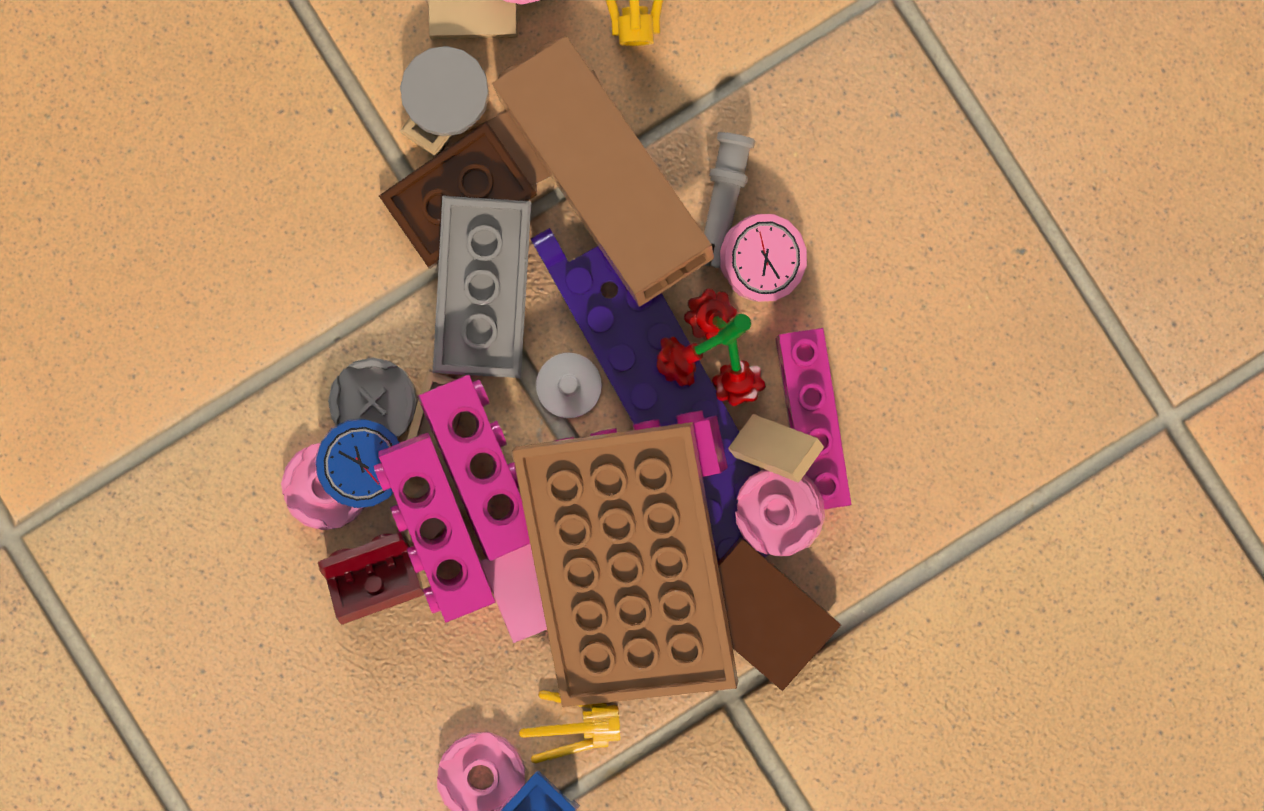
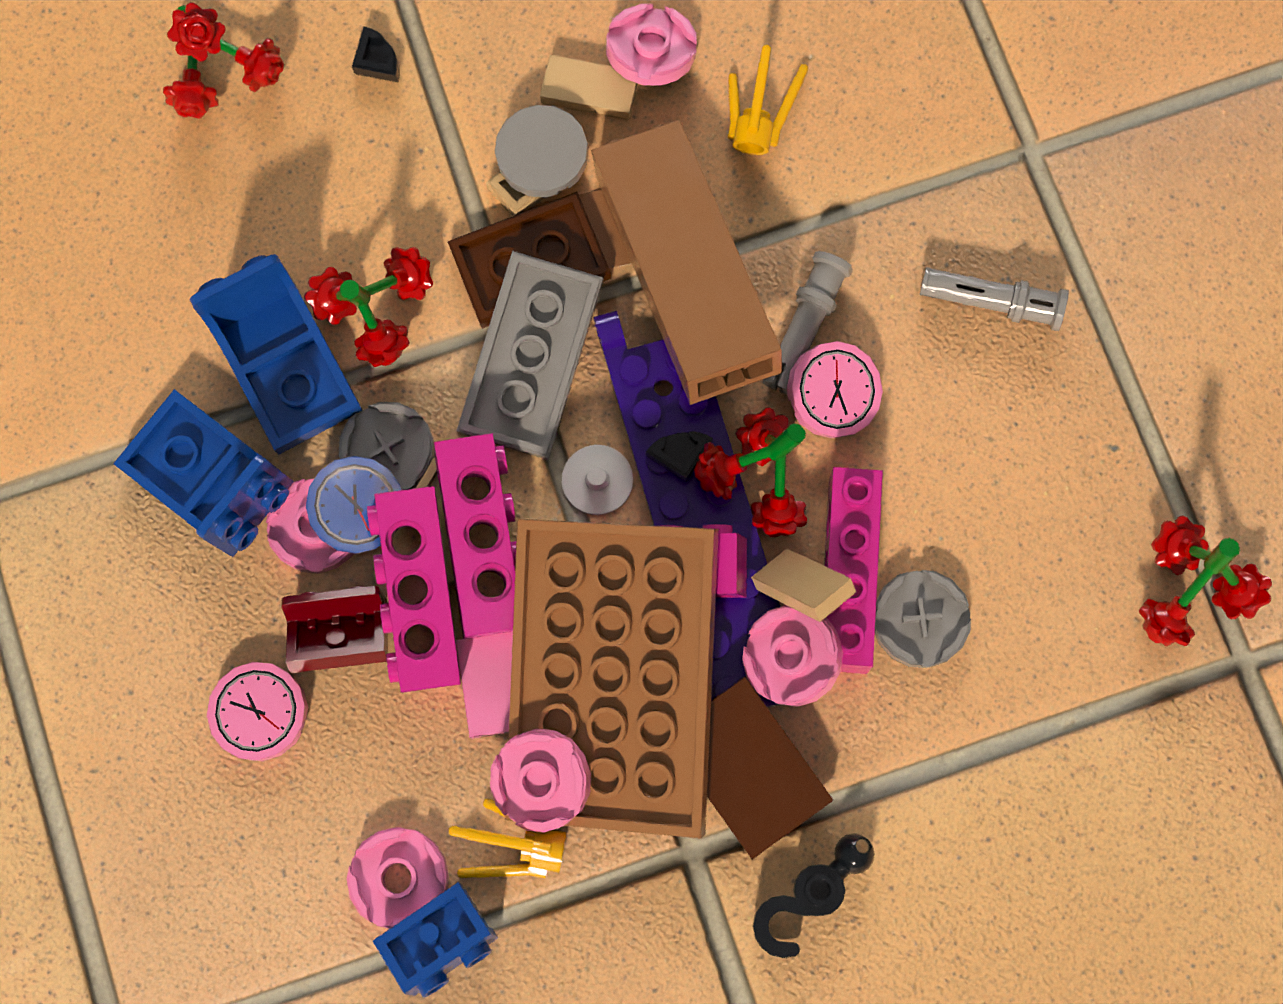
camera: 15 degrees right, 10 degrees down
(98, 54) = (195, 35): none -> red plant
(216, 465) = (204, 474): none -> blue bracket
(253, 340) = (276, 352): none -> blue bracket
(264, 28) = (375, 57): none -> black tile
(291, 272) = (337, 296): none -> red plant
(320, 663) = (257, 711): none -> bright pink tile
(586, 669) = (540, 780): none -> bright pink tile
(639, 349) = (679, 452): none -> black tile
(843, 707) = (816, 891): none -> black piece
(884, 446) = (922, 618): none -> light grey tile
(893, 136) = (1016, 300): none -> light grey pin
(1154, 359) = (1237, 592): none -> red plant

